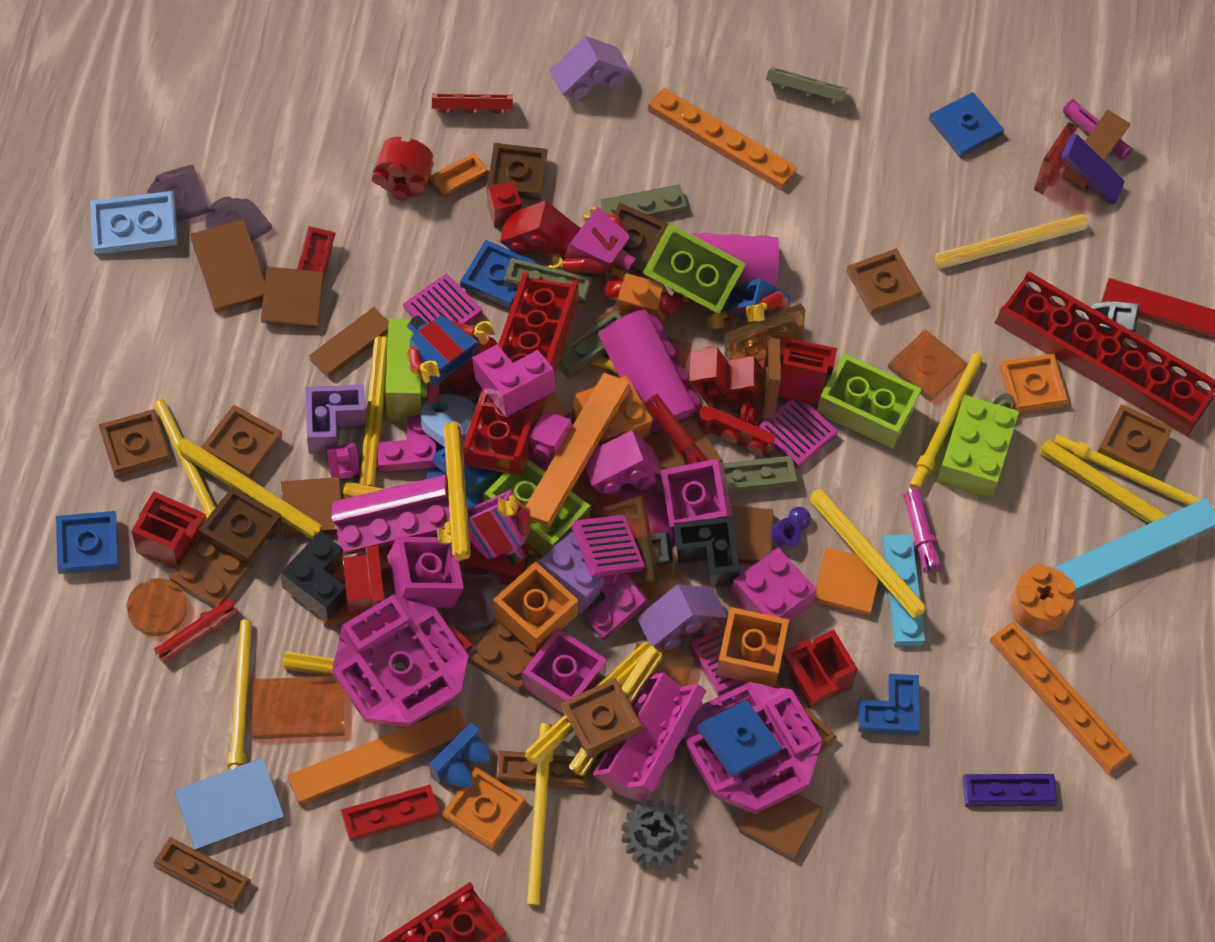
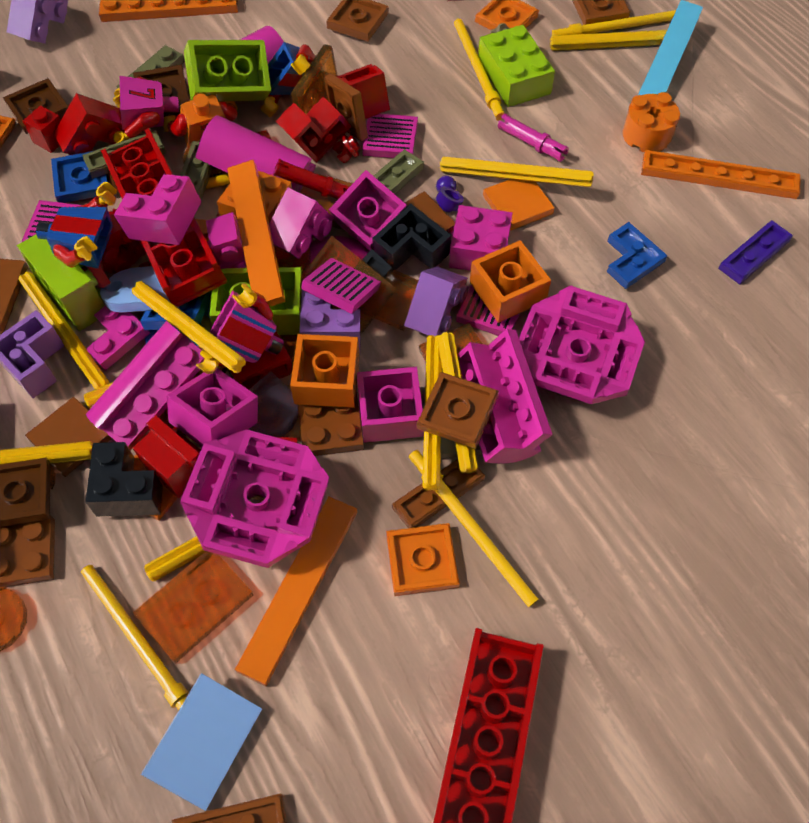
camera: 35 degrees left, 0 degrees up
(205, 624) = (45, 612): red pin -> none
(343, 460) = (66, 381): dark pink tile -> none
(390, 813) = (351, 628): red plate -> none
(449, 763) = (368, 547): blue tile -> none
(620, 605) = (384, 324): dark pink plate -> none
(667, 836) = (566, 480): dark grey gear -> none
(736, 431) = (351, 159): red plate -> none
(739, 738) = (571, 346): blue plate -> none
(783, 825) = (648, 393): dark orange tile -> none
(820, 667) = (567, 259): red plate -> none
(868, 400) = (423, 82): lime brick -> none
(900, 555) = (580, 199): medium azure plate -> none
(927, 365) = (433, 46): clear orange tile -> none

